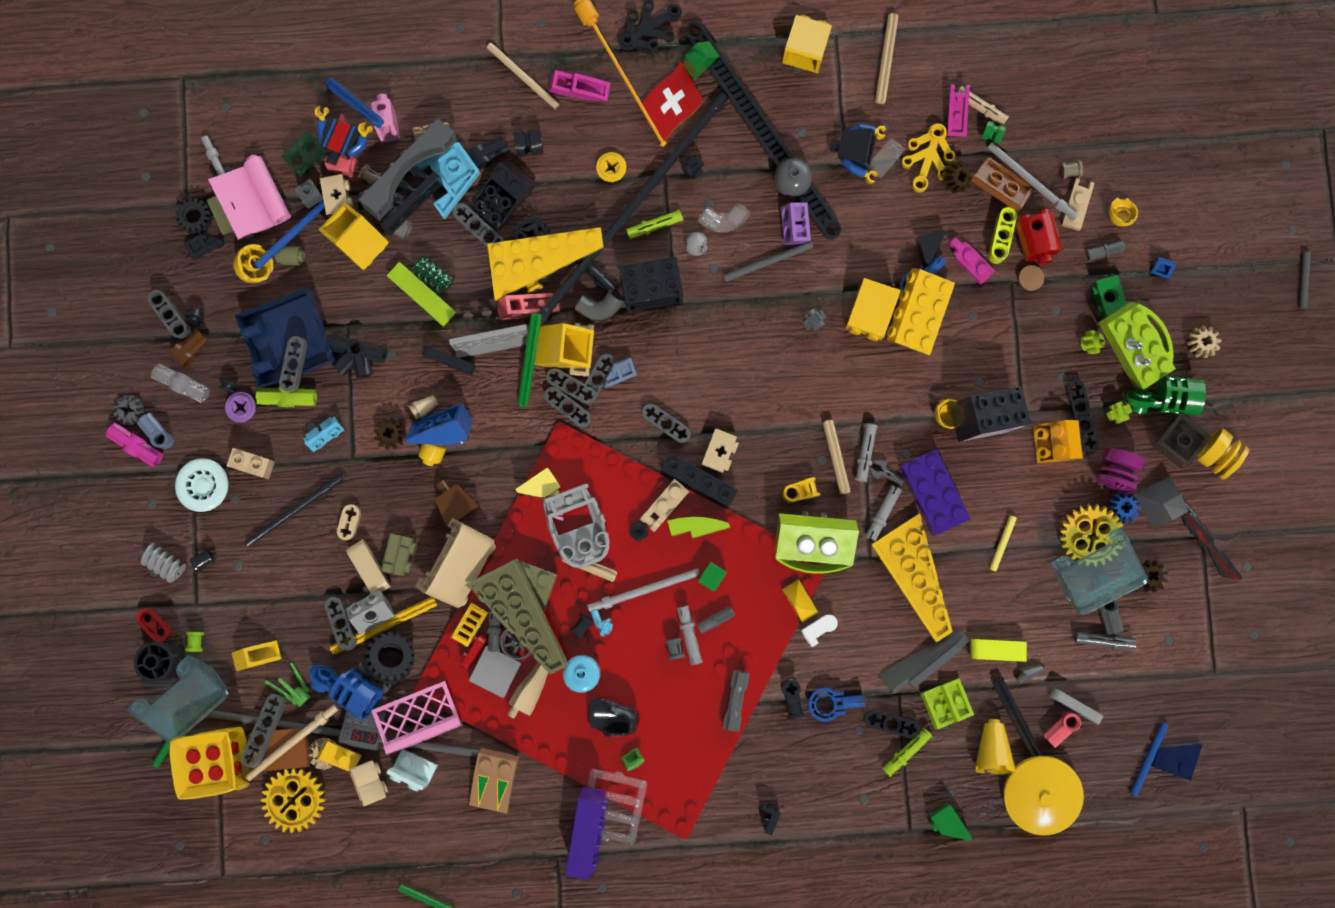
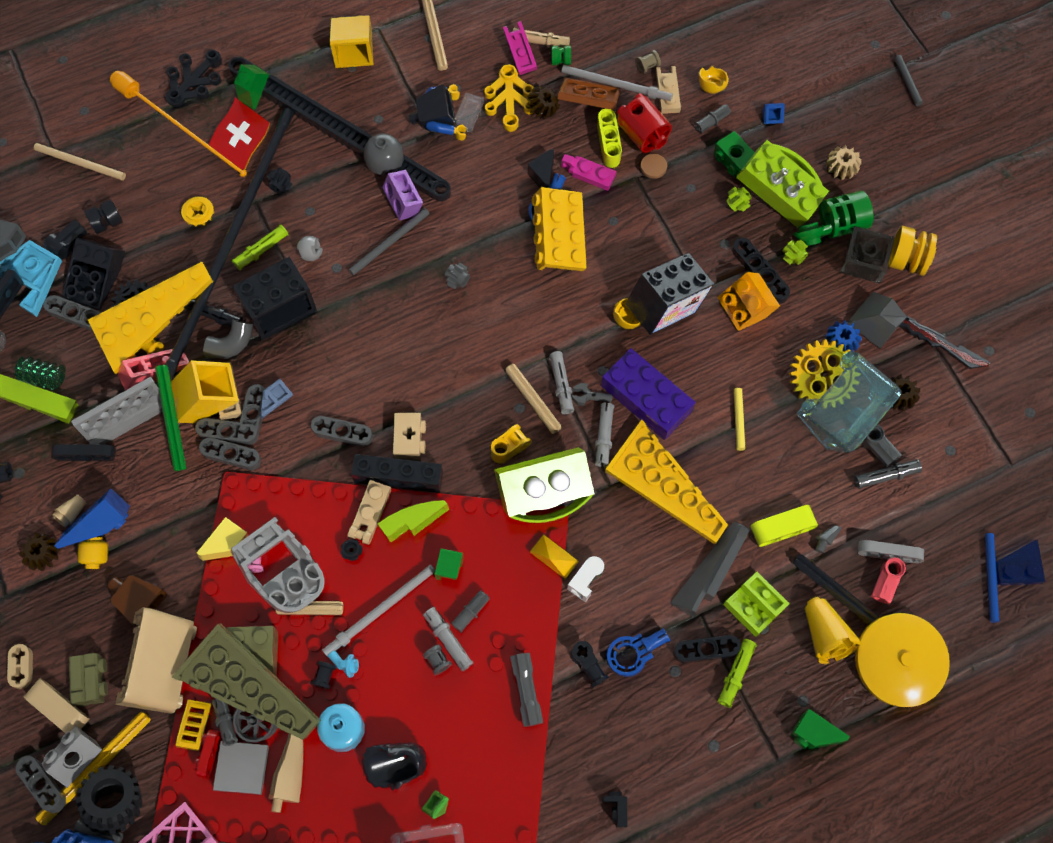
camera: 25 degrees left, 15 degrees down
(579, 86) = (139, 150): dark pink slope -> none
(724, 222) = (331, 219): clear cylinder -> none
(872, 309) = (511, 243): yellow slope -> none
(1120, 469) = (822, 300): magenta wheel -> none

